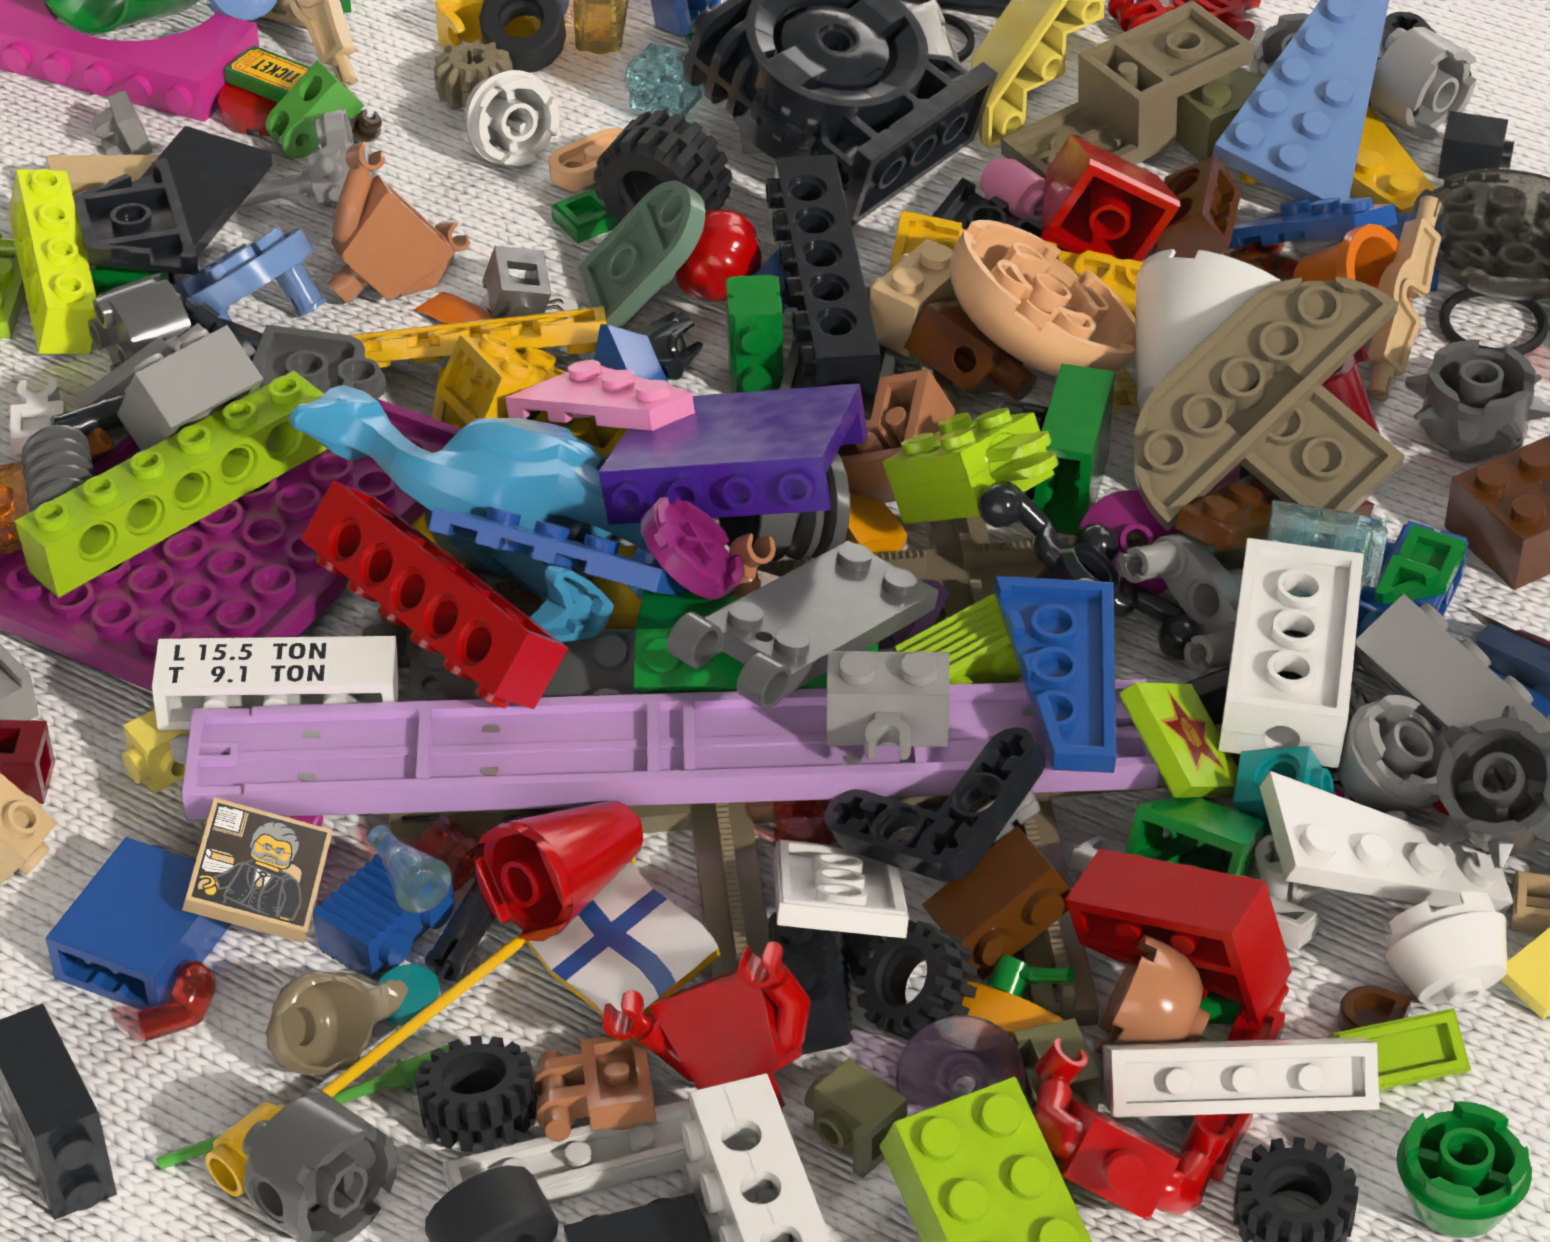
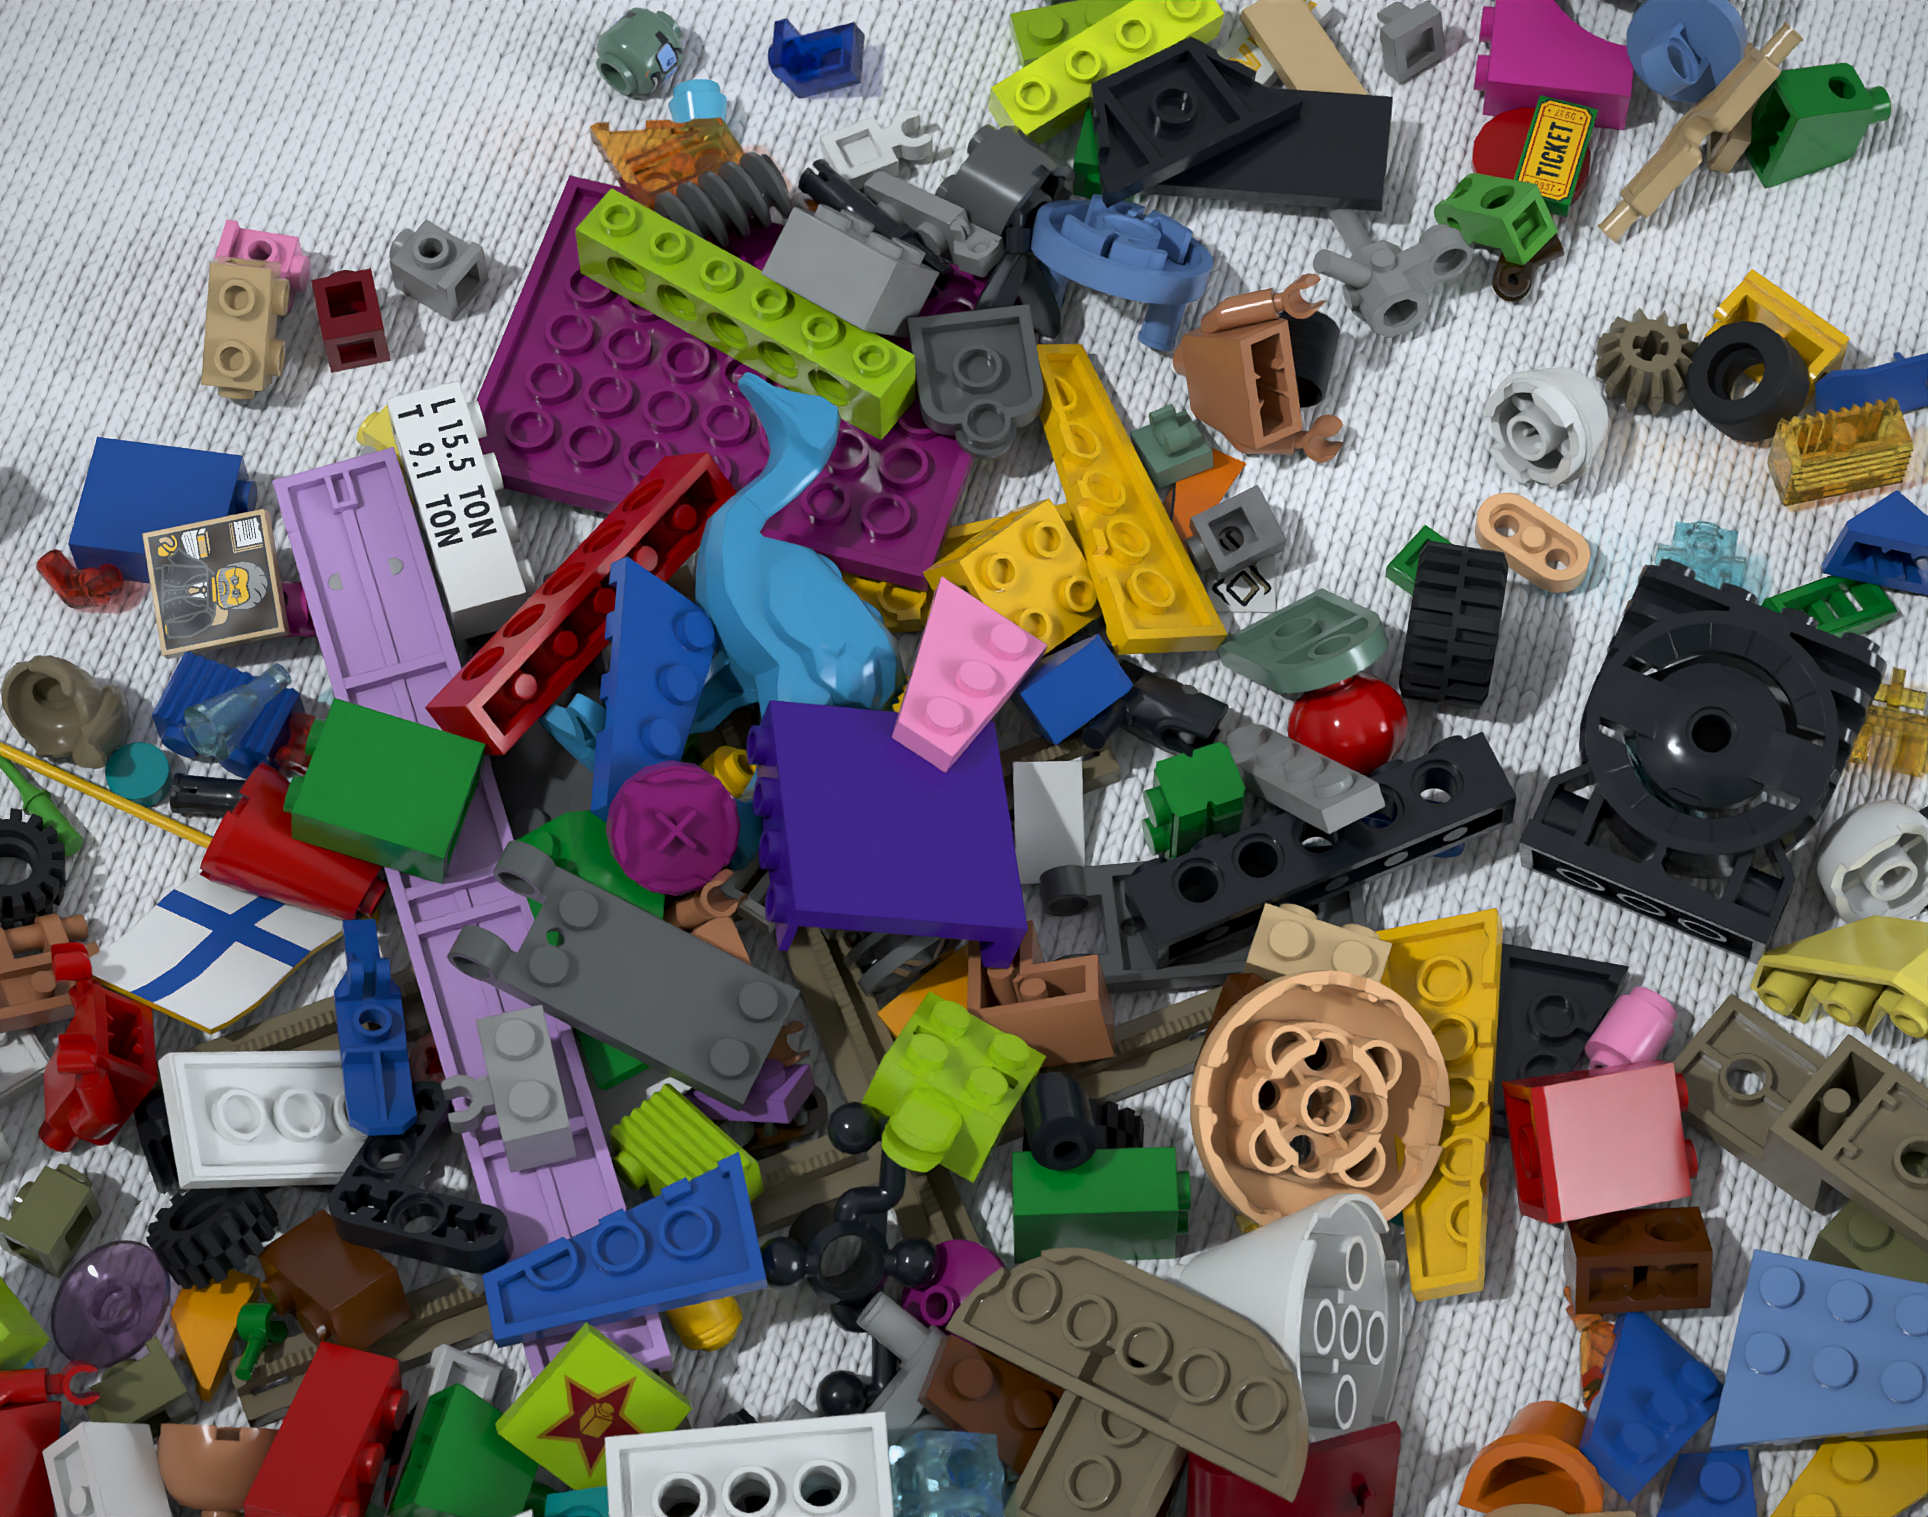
camera: 75 degrees right, 20 degrees up
(414, 308) = (1171, 447): none -> sand green tile
(562, 738) = (385, 790): none -> green brick
(766, 832) = (377, 1061): none -> blue piece
(773, 253) = (1301, 779): none -> light grey plate
(1035, 392) = (1058, 1122): none -> black brick

